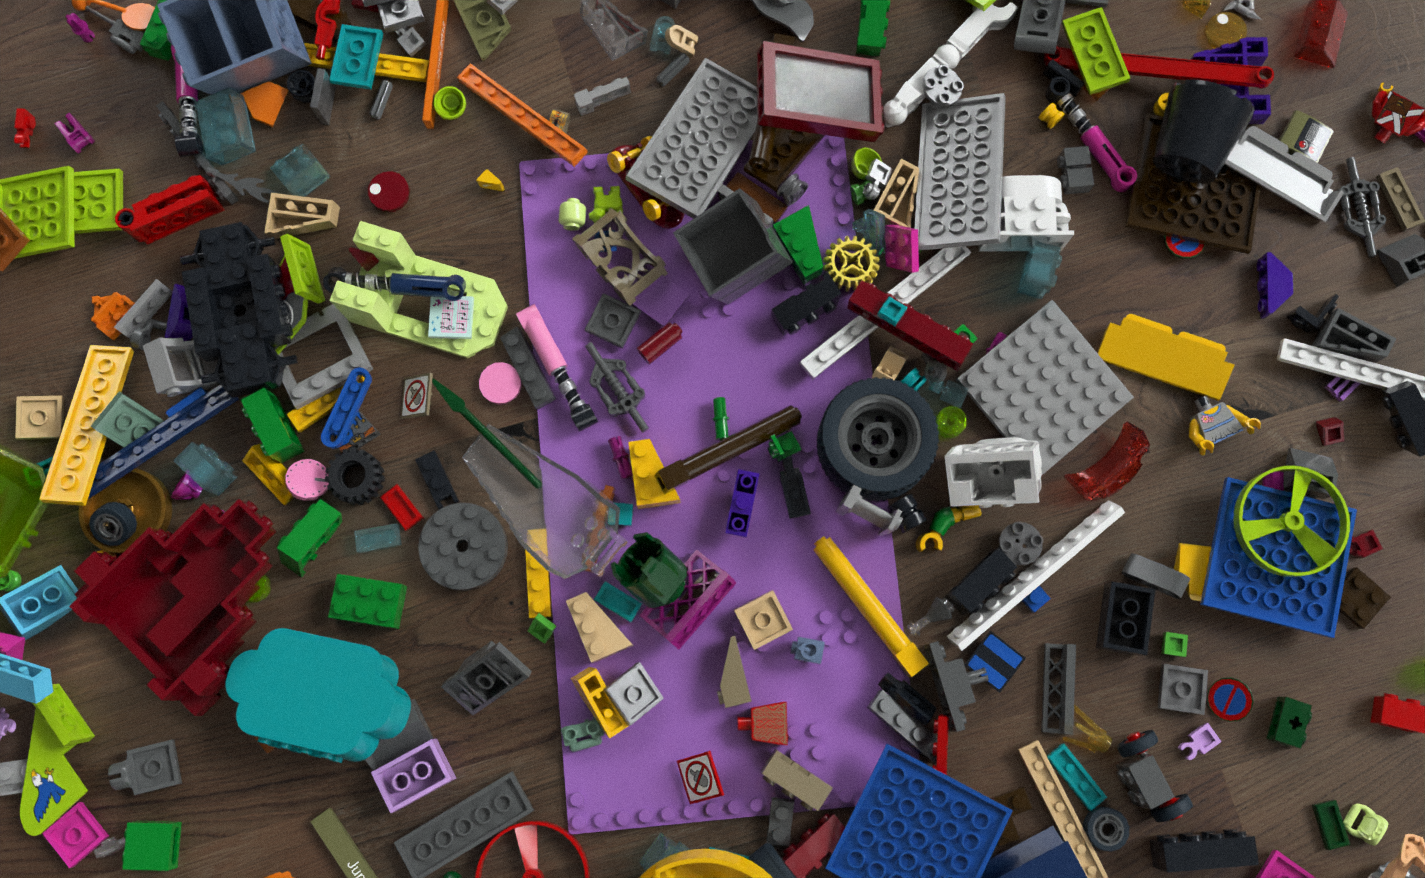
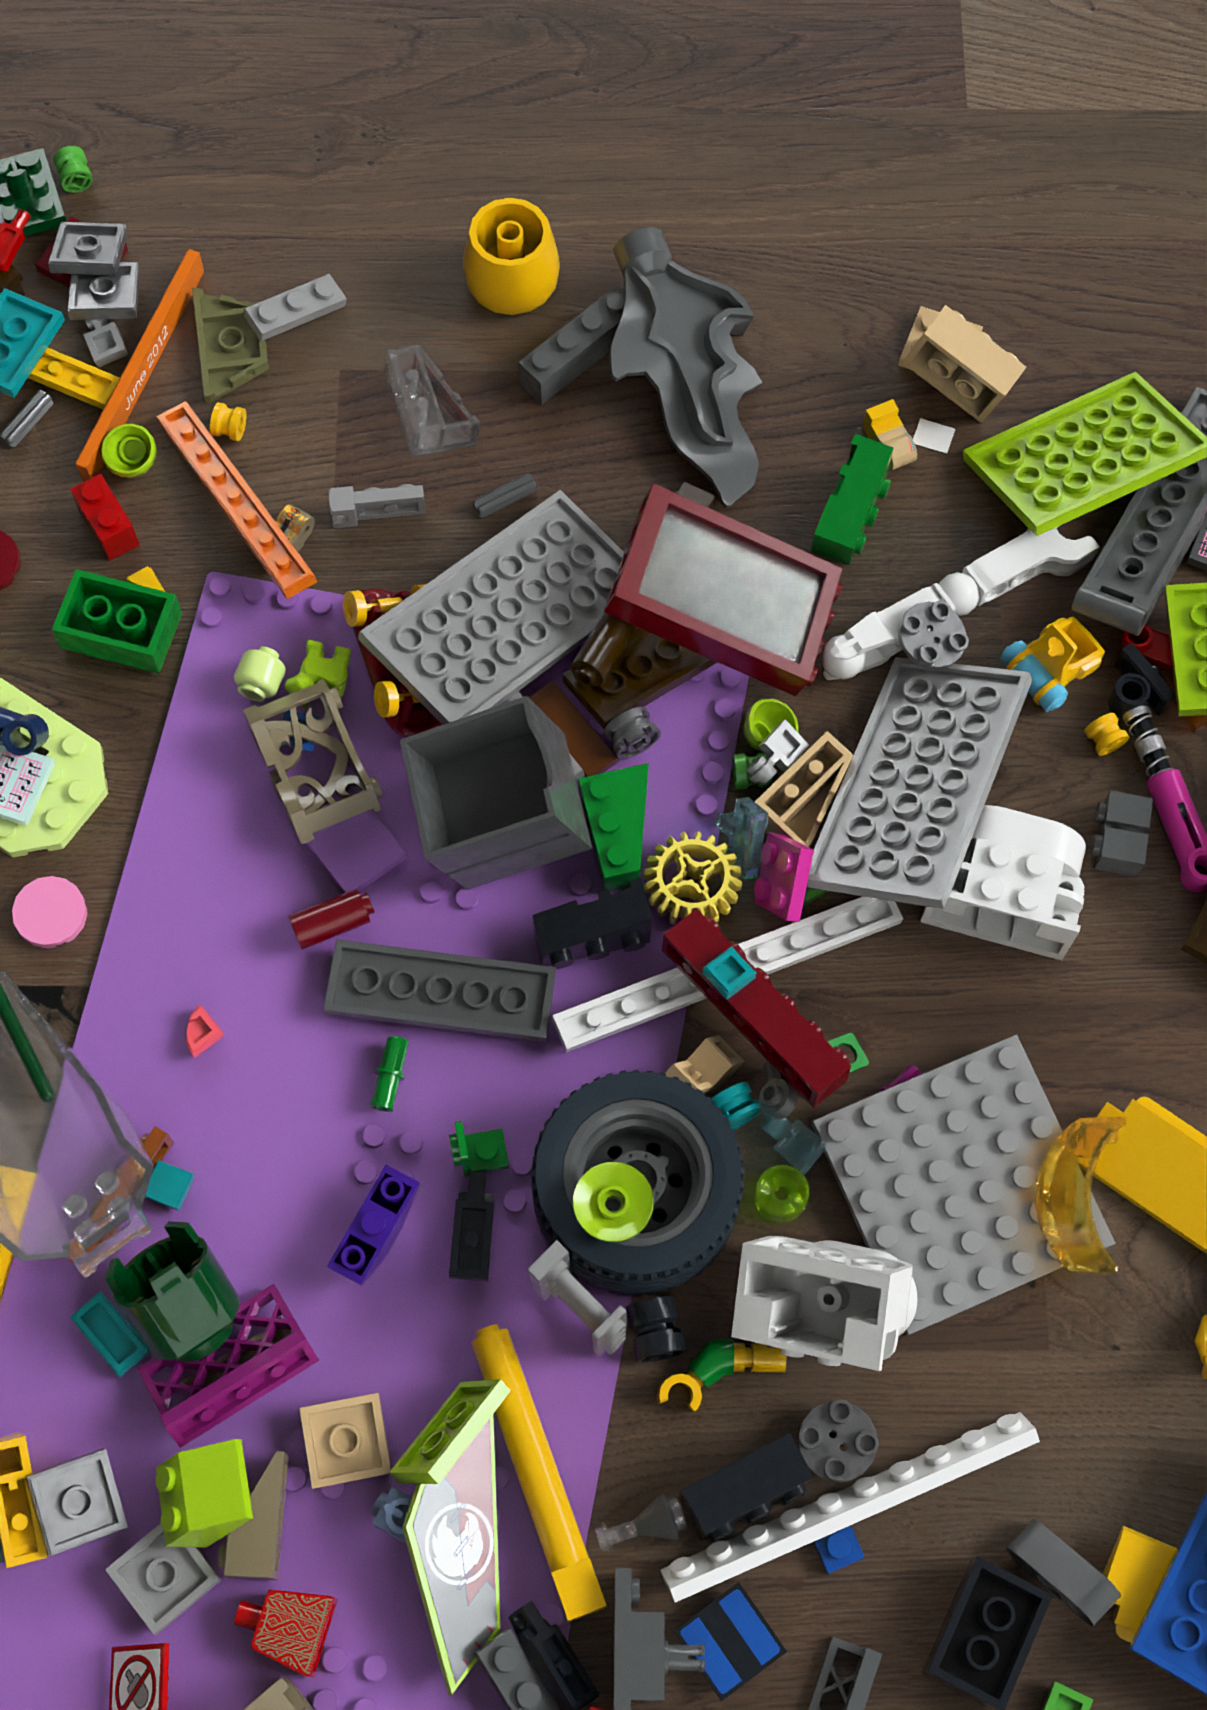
camera: 15 degrees right, 10 degrees down
(449, 146) = (105, 517): none -> red brick
(479, 206) = (117, 621): none -> green brick
(499, 69) = (228, 421): none -> yellow wheel
(528, 368) = (102, 900): dark grey plate -> none
(555, 365) = (134, 829): piece -> none
(596, 629) = (53, 1368): tan wedge -> none
(609, 425) = (201, 1032): none -> coral tile
(612, 321) = (267, 862): dark grey tile -> none
(620, 457) = (200, 1089): magenta axle -> none
(628, 403) = (243, 1002): dark grey bar -> none
(644, 465) = (234, 1136): yellow wedge -> none
(660, 28) = (510, 428): clear light blue plate -> none
(676, 38) = (524, 445): tan plate -> none
(691, 717) = (162, 1579): none -> light grey plate
(701, 669) = (203, 1494): none -> lime slope
(727, 449) = (282, 1140): dark brown brick -> none
(733, 365) = (440, 990): none -> dark grey plate
(836, 642) = (455, 1524): none -> piece
(877, 444) = (617, 1182): none -> lime dish
(1014, 76) = (1055, 659): none -> yellow piece
(1039, 270) = (1010, 980): clear light blue brick -> none
(1103, 377) = (1065, 1195): none -> clear yellow windscreen
(1115, 468) = (1046, 1360): clear red windscreen -> none

